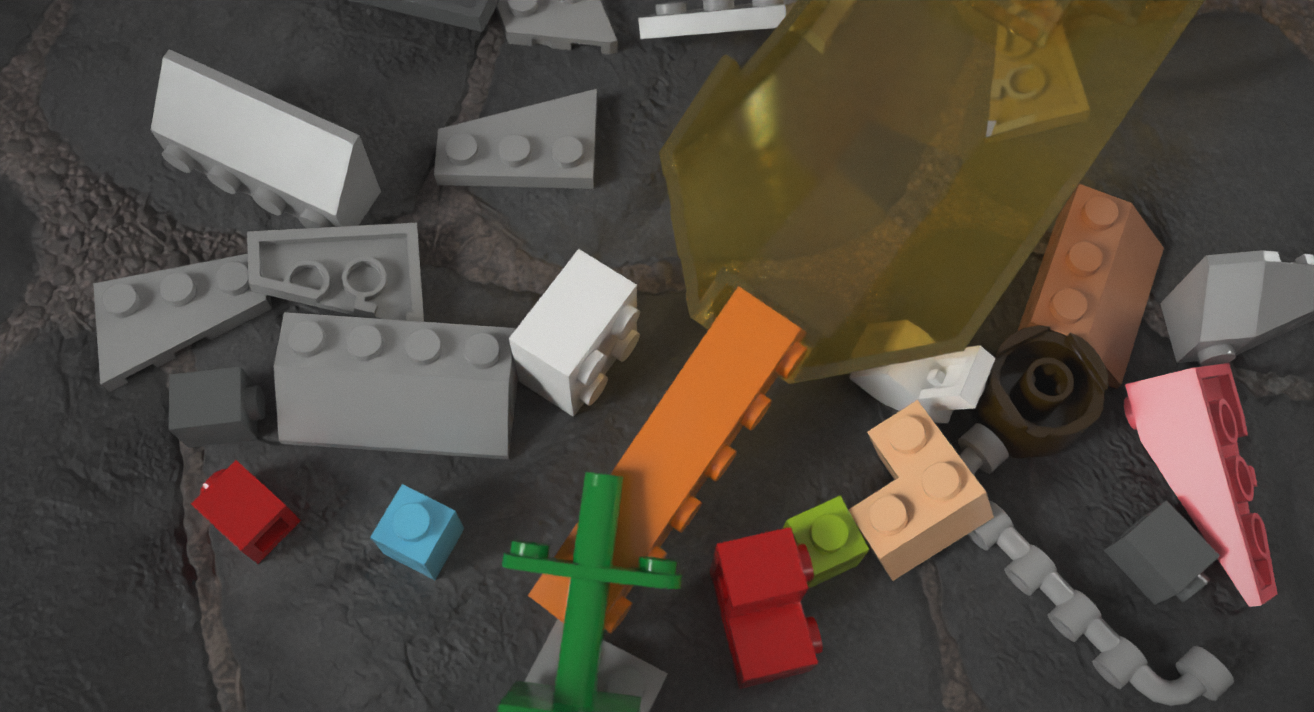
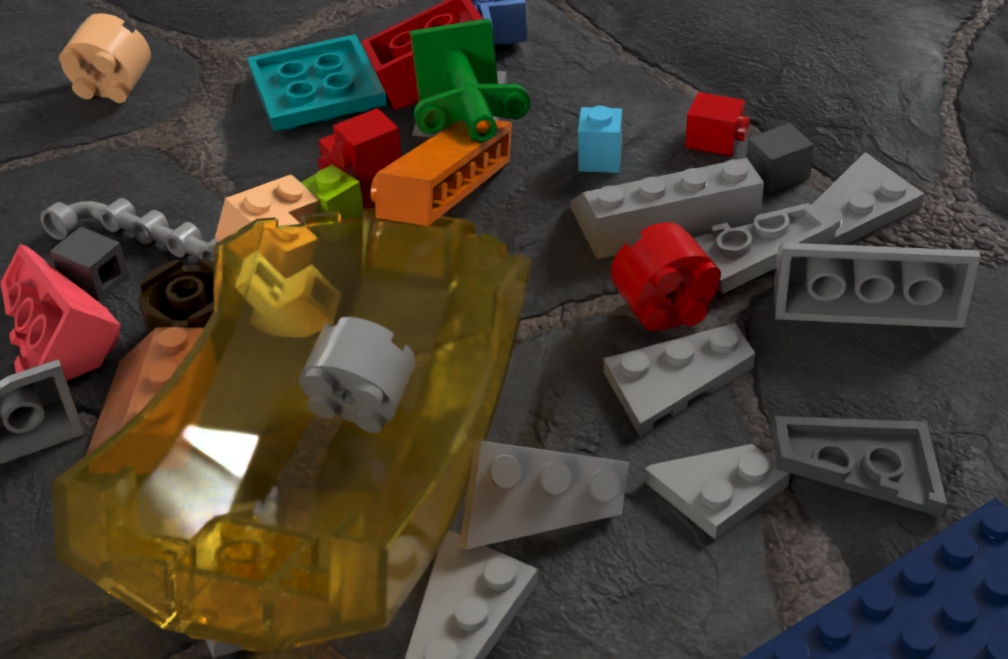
camera: 165 degrees right, 25 degrees down
(481, 219) = (665, 277): none -> red brick
(576, 333) = (552, 232): white brick -> none
(876, 165) = (356, 373): none -> light grey brick

